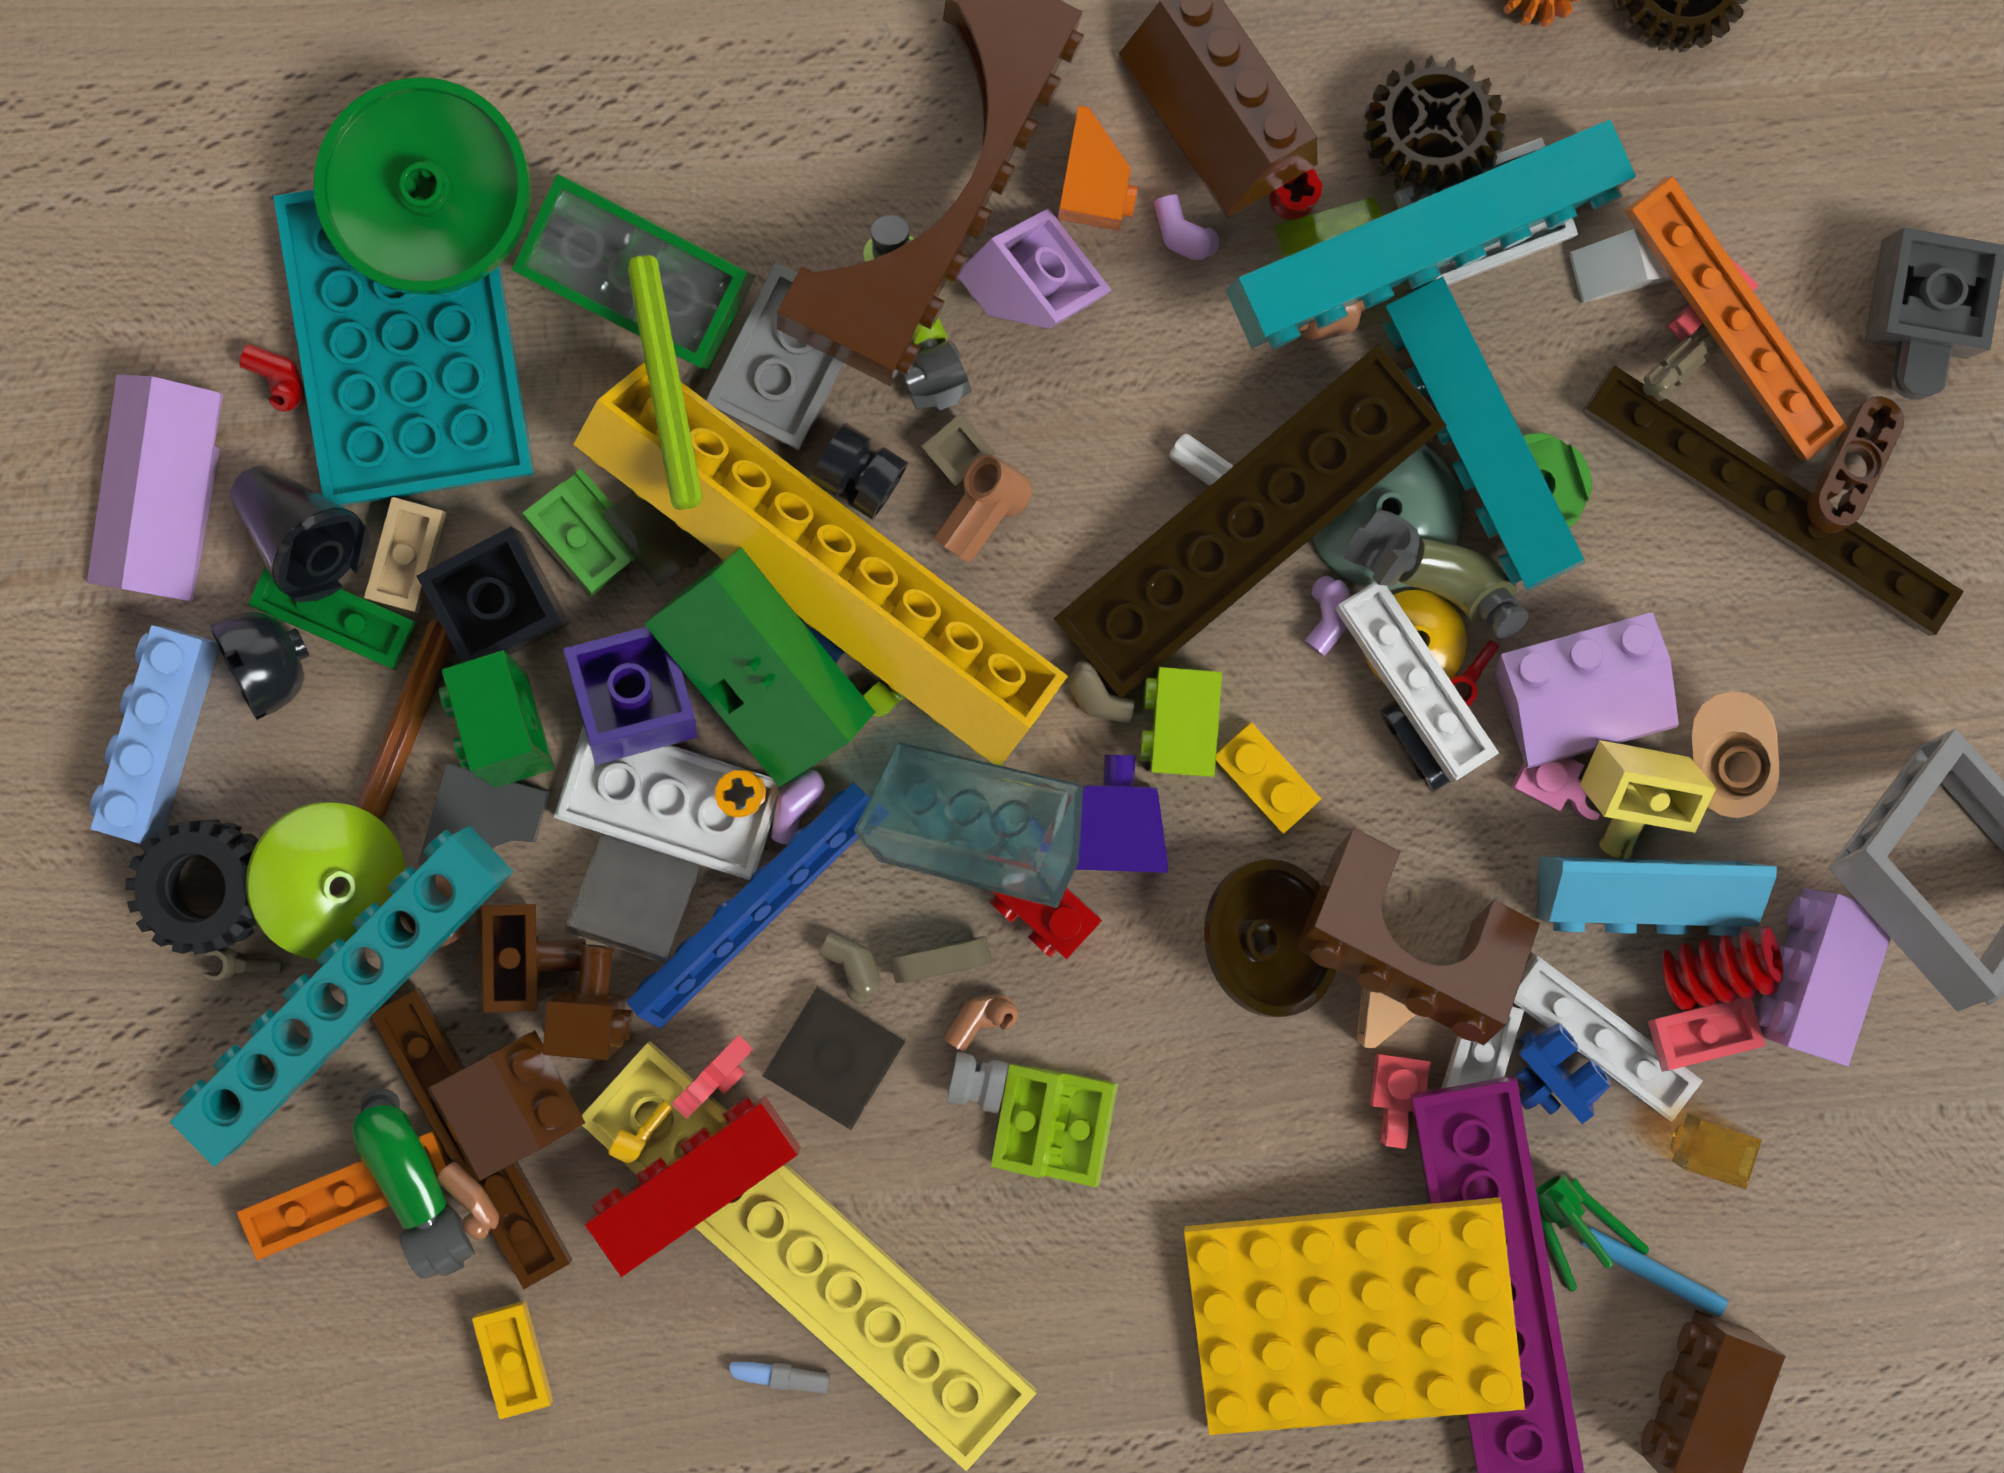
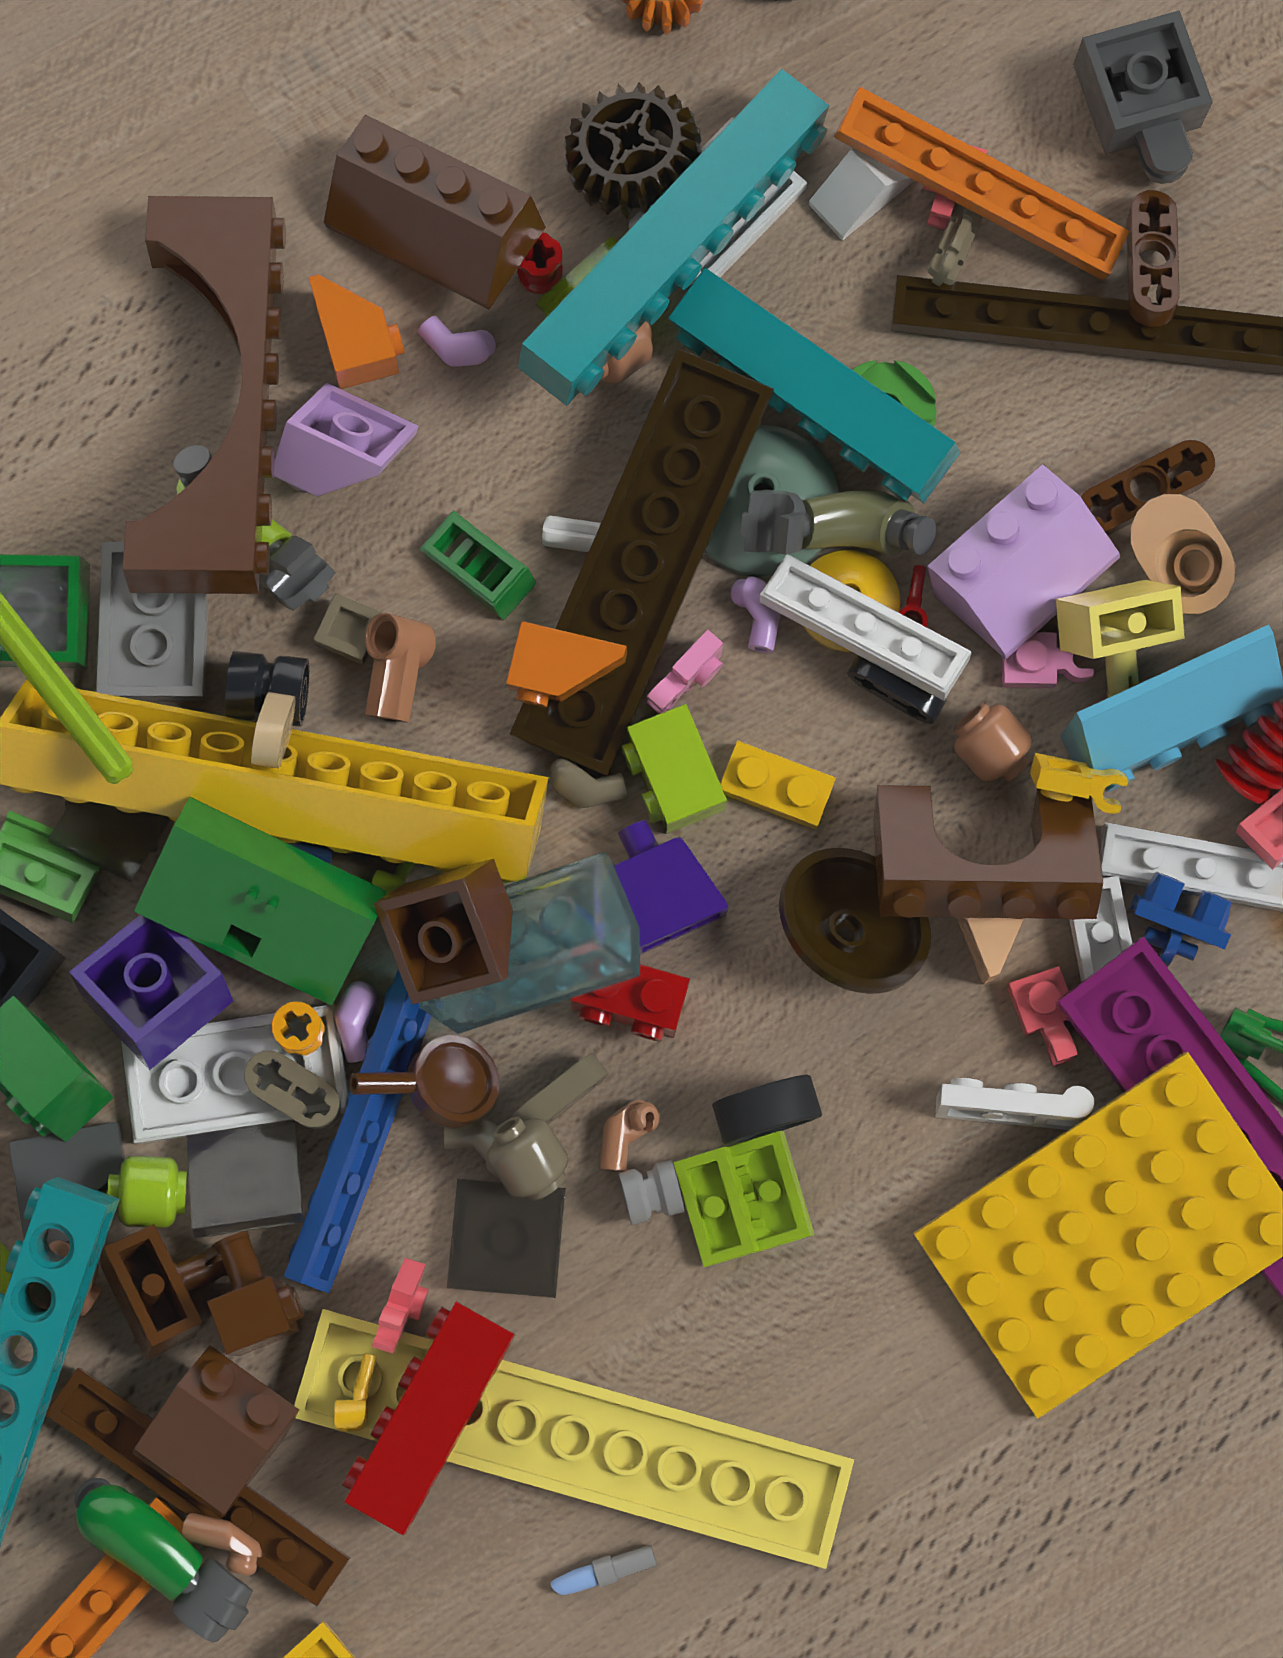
camera: 30 degrees left, 10 degrees down
(545, 869) = (149, 1191): none -> lime head
(700, 849) = (300, 1079): none -> dark tan beam
(842, 522) = (273, 730): none -> tan beam
(849, 899) = (447, 1081): none -> reddish brown piece
(884, 1004) = (527, 1158): none -> dark tan head
(911, 779) = (449, 930): none -> reddish brown slope
(1111, 1065) = (767, 1109): none -> black tyre
(1120, 485) = (502, 587): none -> green slope
(1125, 582) = (558, 663): none -> orange slope
(1250, 639) = (696, 665): none -> bright pink plate
(1330, 1163) = (1013, 1105): none -> white plate
(1475, 837) = (992, 743): none -> nougat head
(1525, 909) = (1067, 778): none -> yellow plate
(1769, 657) = (1170, 459): none -> reddish brown beam

